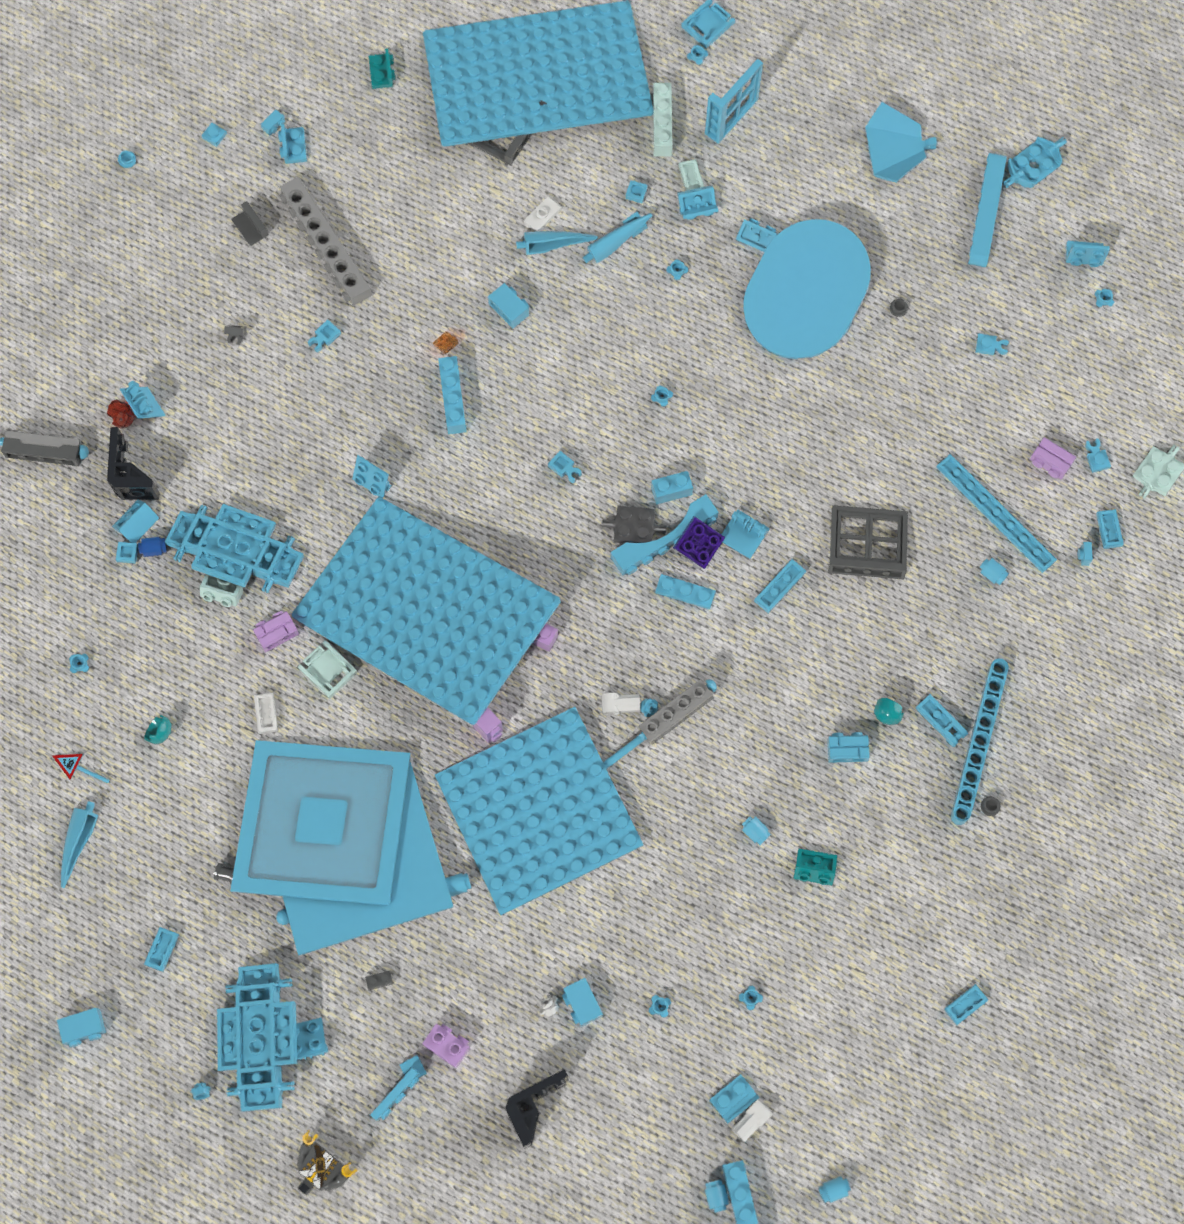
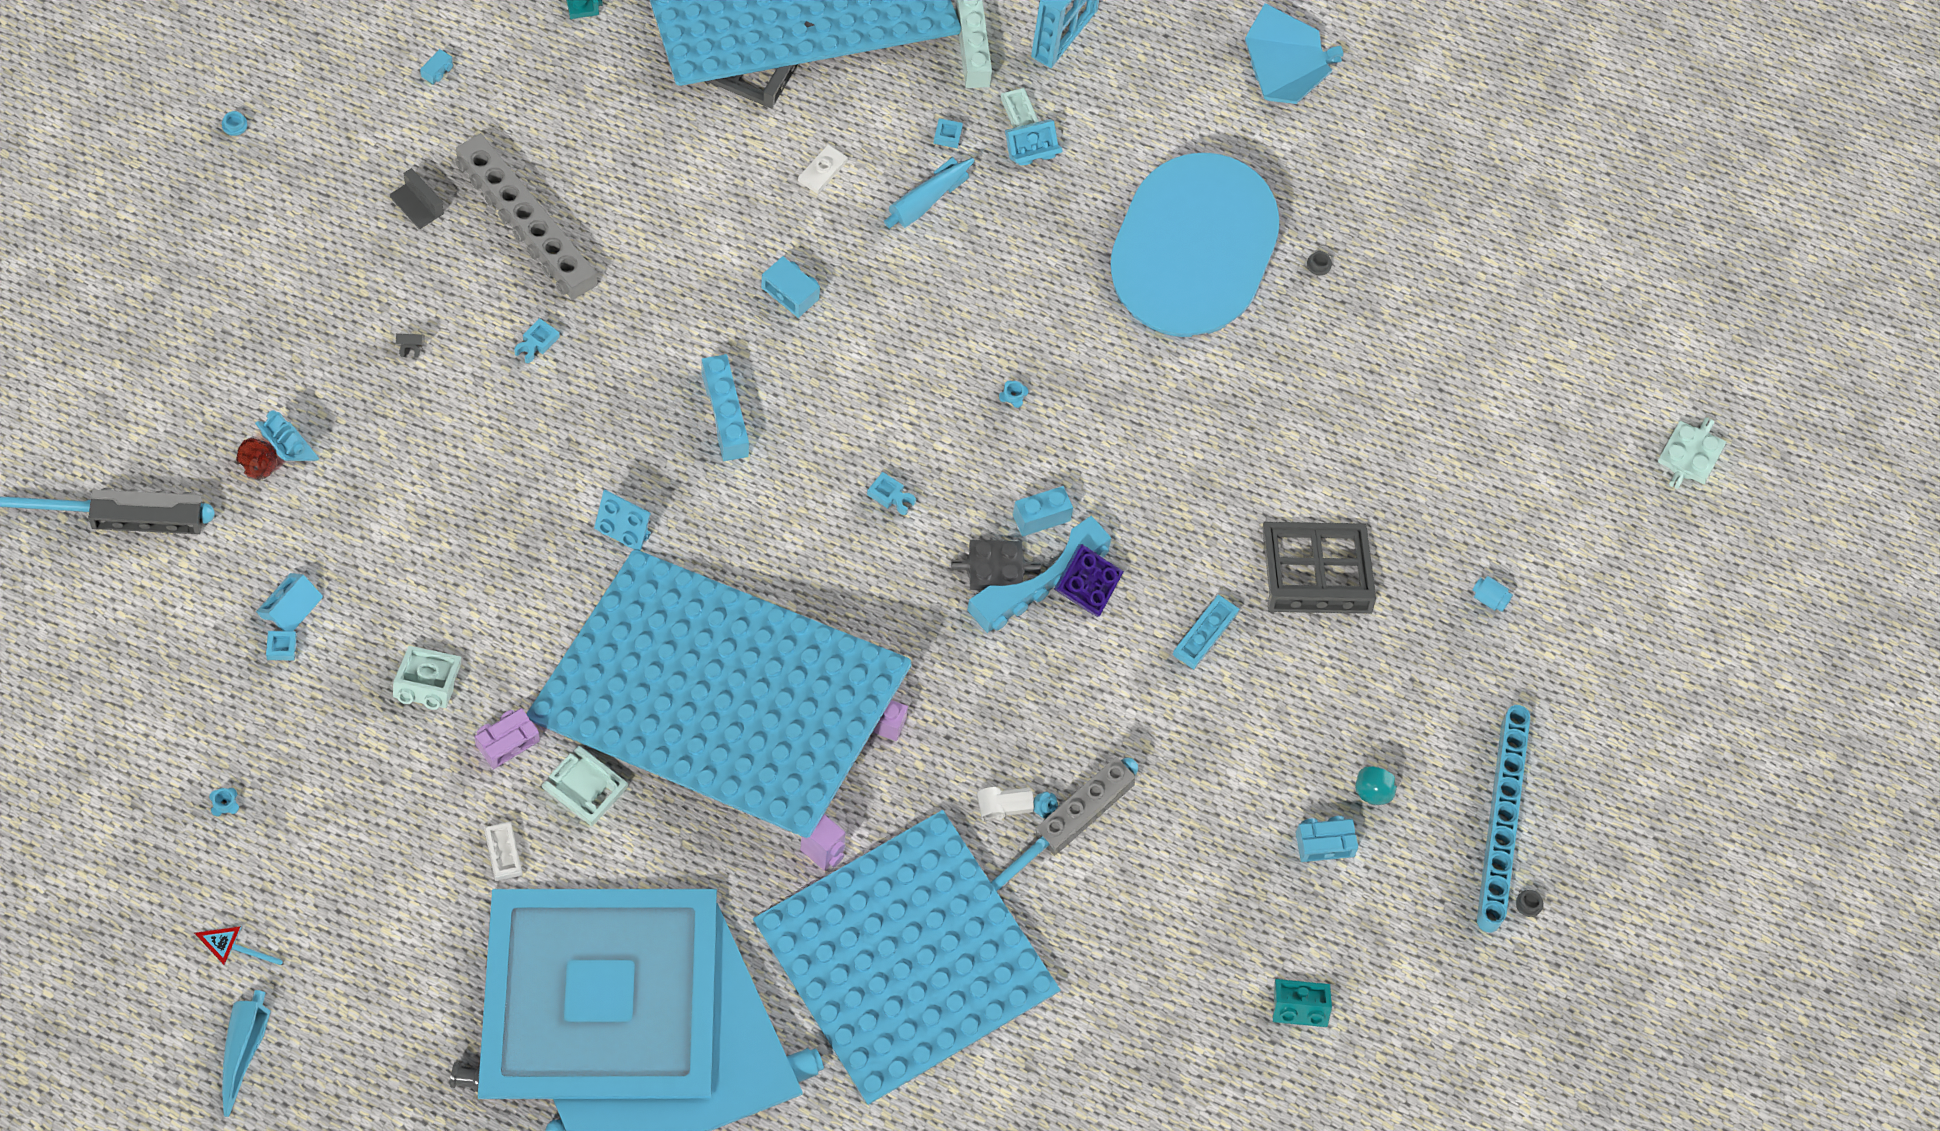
camera: 15 degrees left, 10 degrees down
(133, 483) = (289, 548): black bracket -> none
(152, 546) = (318, 635): blue brick -> none
(158, 730) = (356, 879): teal hair -> none
(214, 134) = (355, 86): medium azure plate -> none
(234, 547) = (437, 627): medium azure piece -> none
(293, 144) = (468, 94): medium azure bracket -> none
(445, 342) = (707, 340): clear orange tile -> none
(545, 241) = (832, 202): medium azure piece -> none
(677, 264) = (1019, 225): medium azure plate -> none
(685, 591) = (1076, 648): medium azure plate -> none
(744, 533) = (1148, 566): medium azure hinge -> none
(755, 235) = (1116, 180): medium azure bracket -> none
(755, 830) = (1213, 959): medium azure brick -> none
(941, 720) = (1448, 794): medium azure plate -> none
(987, 210) = (1421, 134): medium azure beam -> none
(988, 345) = (1444, 305): medium azure plate -> none
(996, 513) = (1485, 519): medium azure tile -> none
(1042, 152) = (1481, 58): medium azure plate -> none
(1052, 458) = (1550, 444): lavender brick -> none
(1085, 553) = (1611, 563): medium azure plate -> none
(1086, 253) = (1558, 182): medium azure bracket -> none
(1097, 459) = (1608, 441): medium azure plate -> none
(1108, 294) = (1590, 231): medium azure plate -> none
(1109, 529) = (1638, 530): medium azure plate -> none

